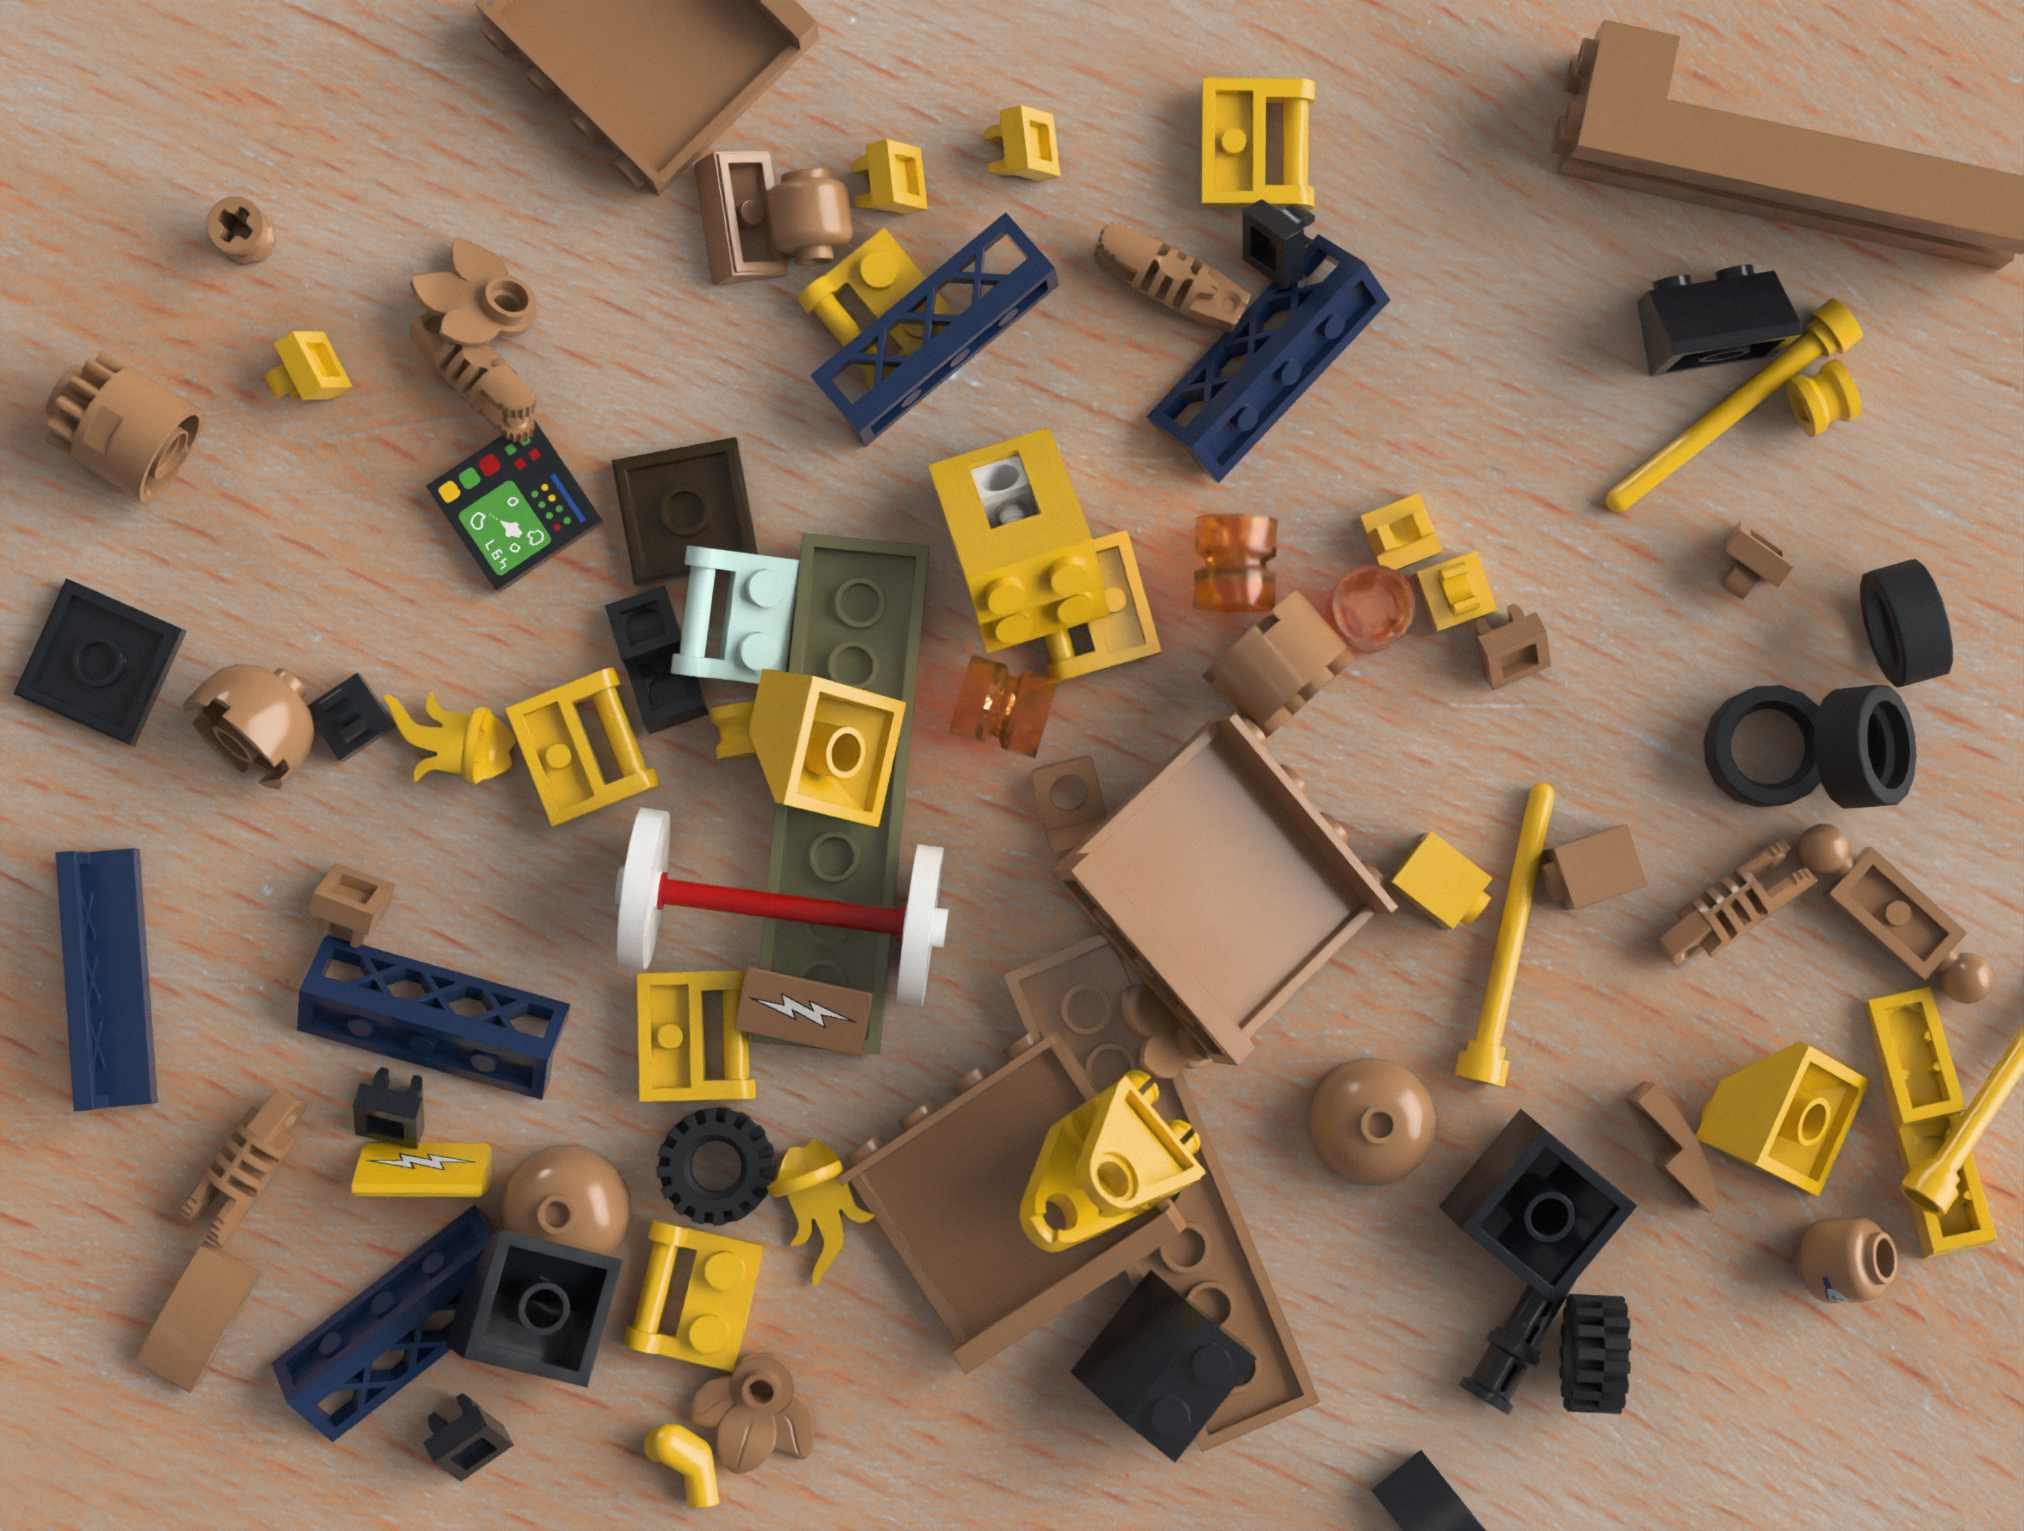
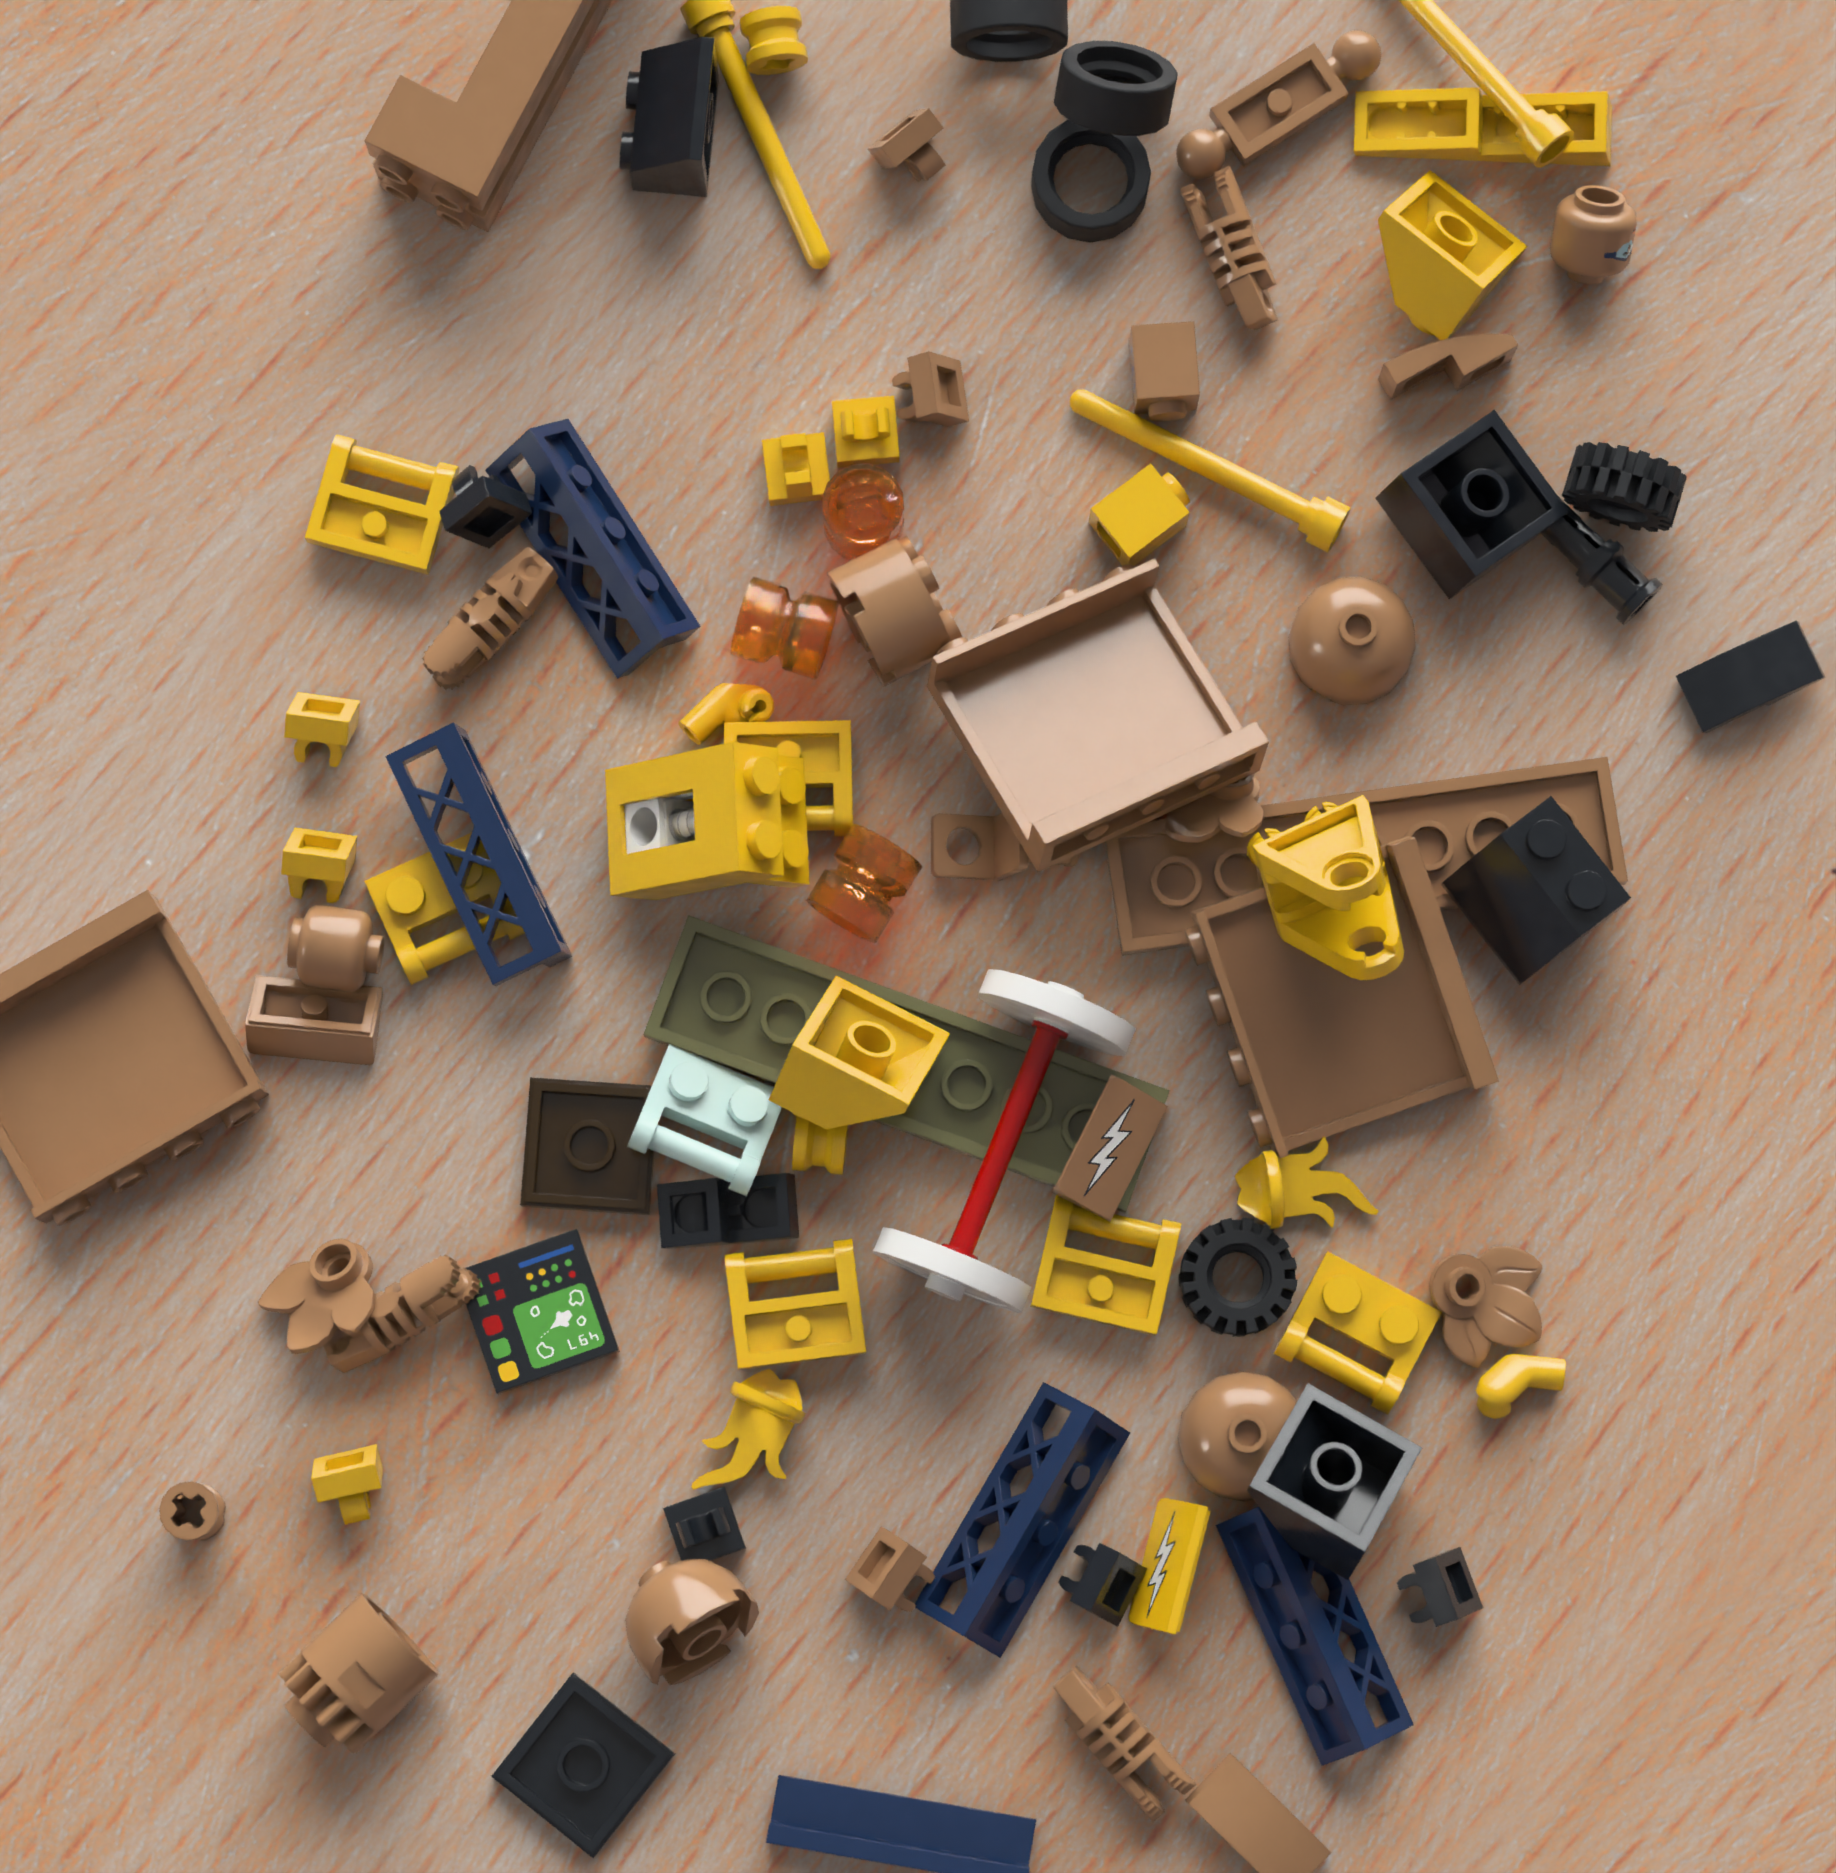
camera: 75 degrees left, 5 degrees down
(1147, 529) = (725, 705): none -> yellow arm

